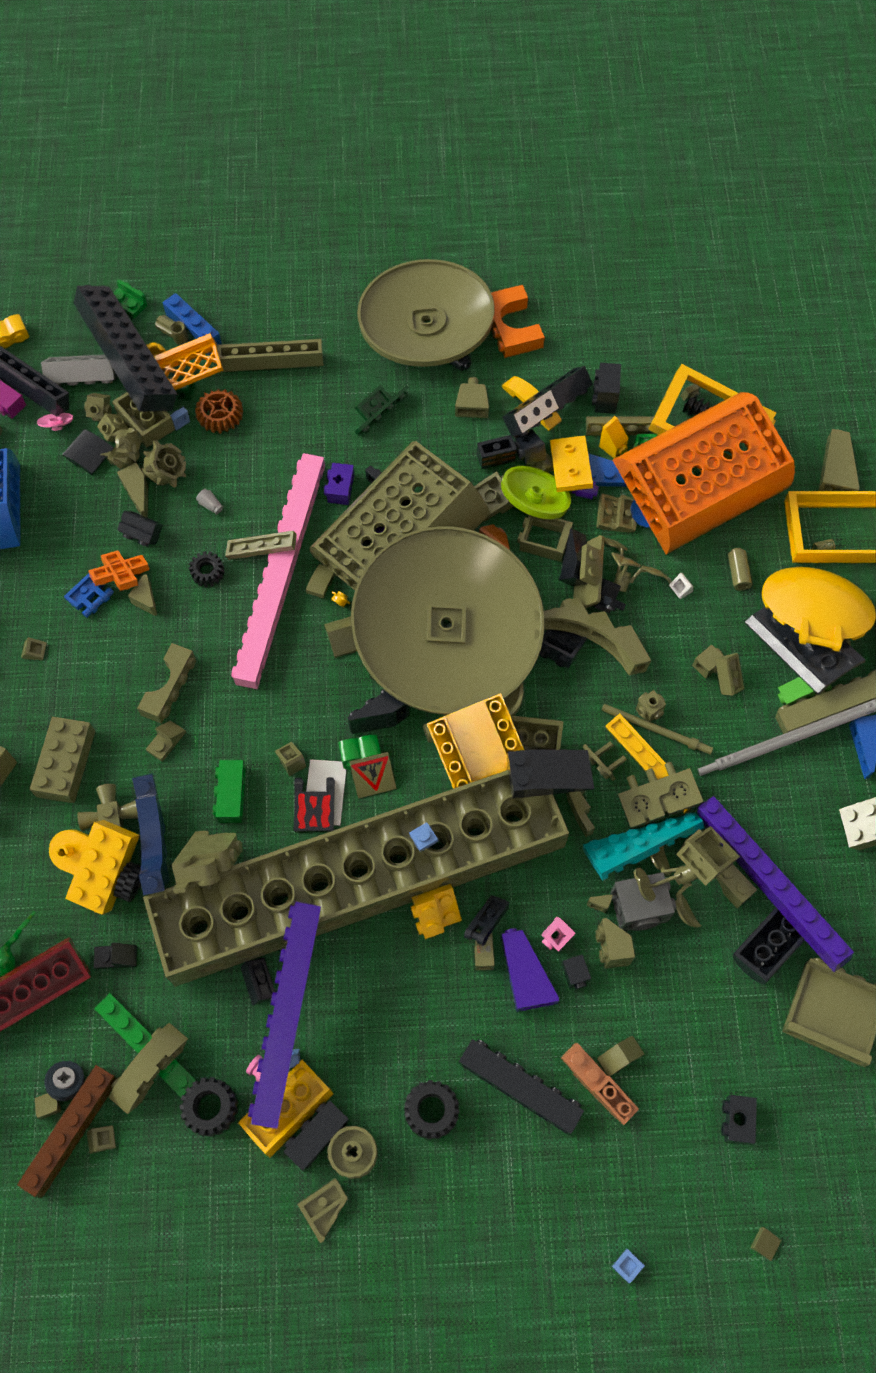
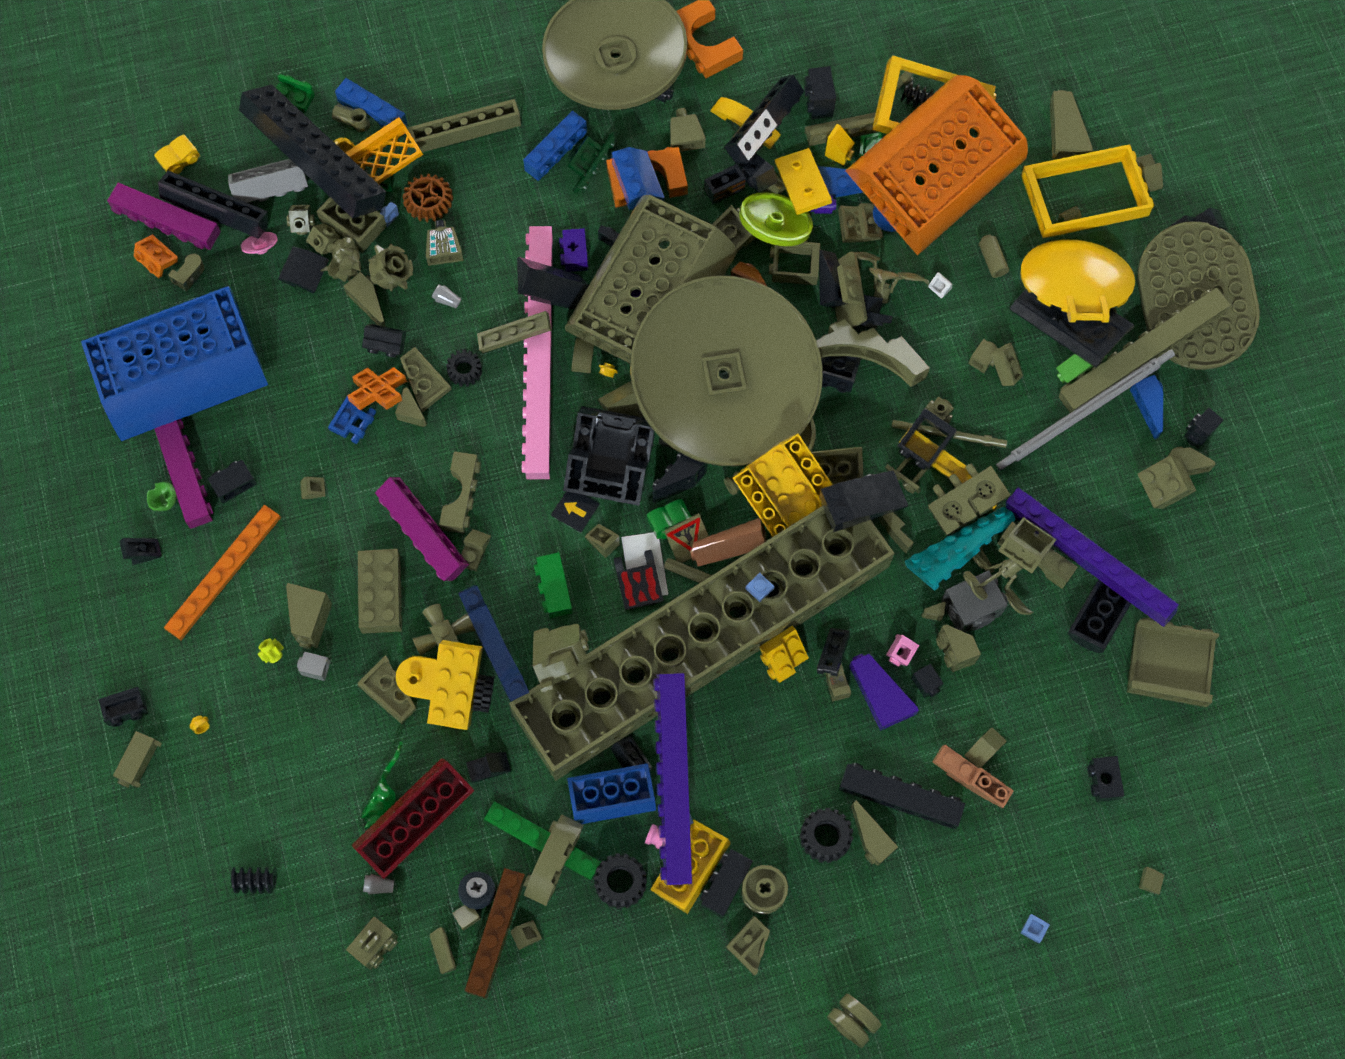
camera: 15 degrees left, 5 degrees up
(14, 1135) = (442, 951): none -> olive slope
(35, 854) = (382, 687): none -> olive wing
(120, 709) = (421, 529): none -> magenta brick
(166, 572) = (424, 379): none -> olive wing
(219, 455) = (442, 245): none -> torso
(225, 1013) = (611, 794): none -> blue slope
(273, 723) = (575, 510): none -> black sticker
(303, 506) = (549, 284): none -> black slope
(317, 679) = (609, 456): none -> black slope
(348, 388) = (555, 145): none -> blue brick
(360, 804) = (685, 570): none -> olive axle
(406, 420) = (666, 162): none -> orange arch
(409, 1321) = (854, 1020): none -> olive wheel
(410, 787) = (729, 543): none -> nougat slope
(414, 424) = (635, 175): none -> blue slope
(480, 1125) = (873, 838): none -> olive slope
(645, 714) = (936, 422): none -> black window

